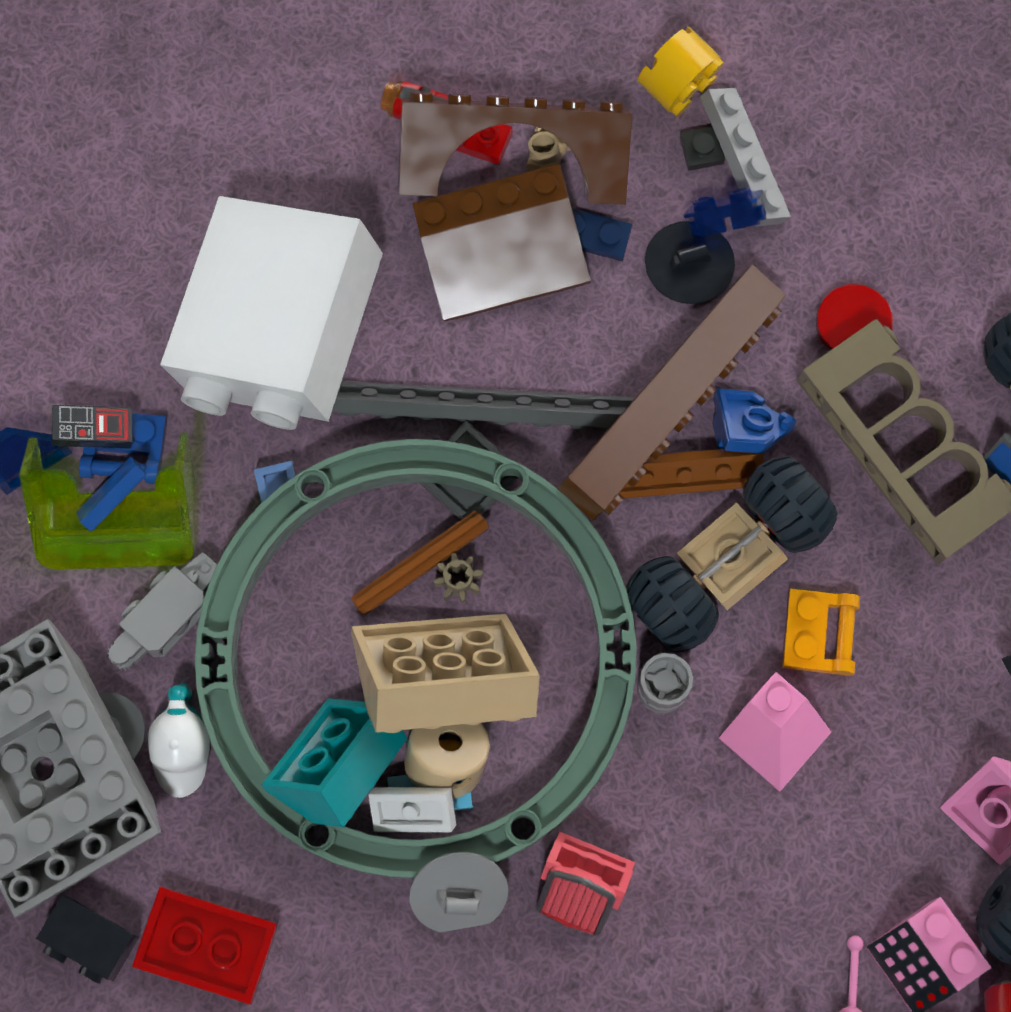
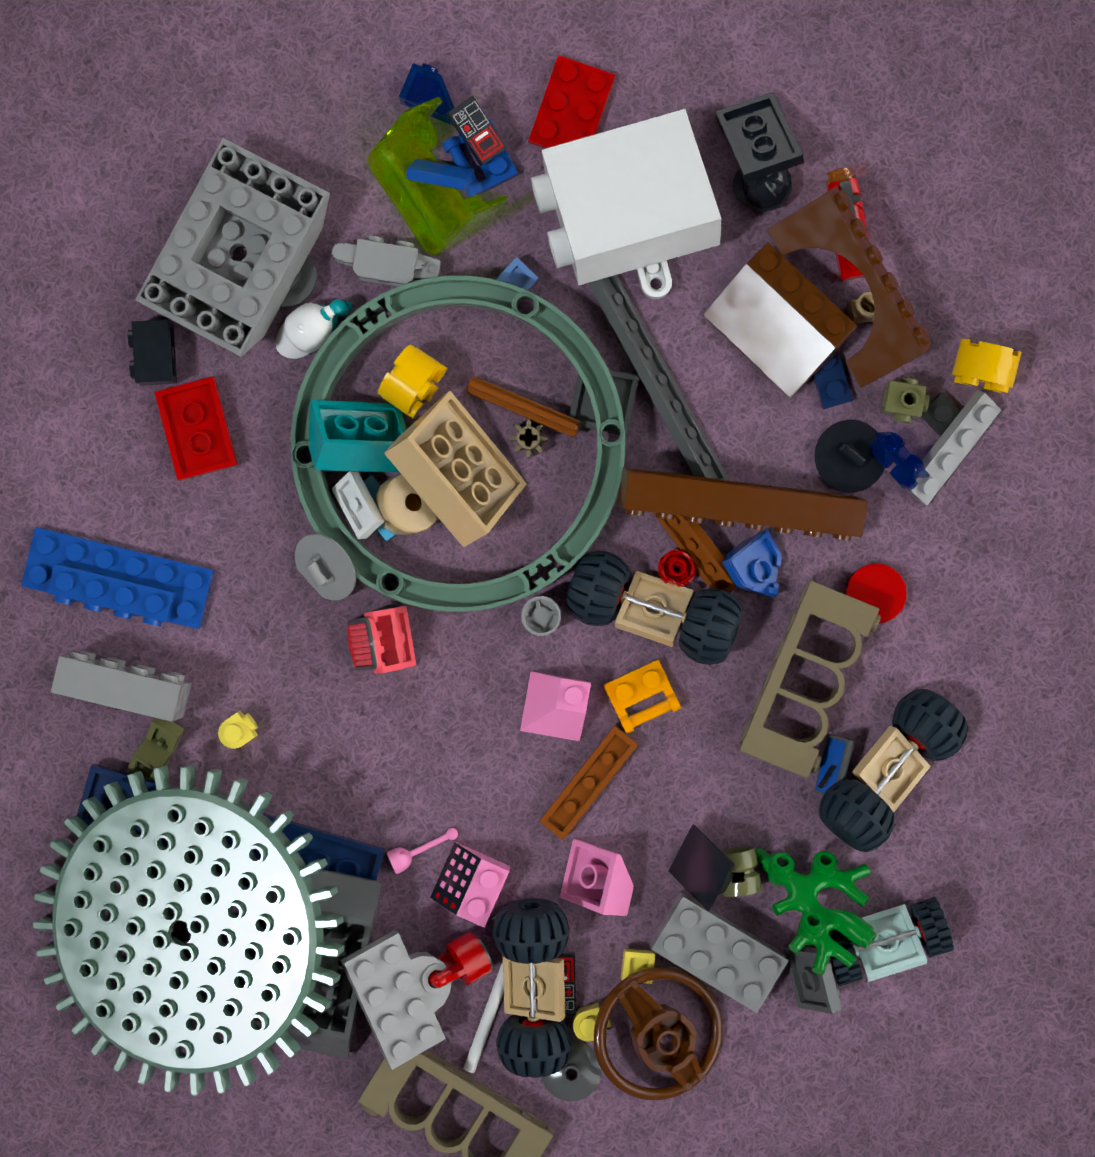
camera: 60 degrees right, 15 degrees up
(130, 319) = (571, 103): none -> red plate
(298, 149) = (759, 137): none -> black plate
(313, 662) = (411, 380): none -> yellow brick
(348, 179) = (763, 193): none -> black piece
(370, 334) = (655, 271): none -> white plate
(665, 171) = (894, 404): none -> olive brick
(697, 497) = (678, 559): none -> red plate
(885, 749) = (588, 782): none -> dark orange plate

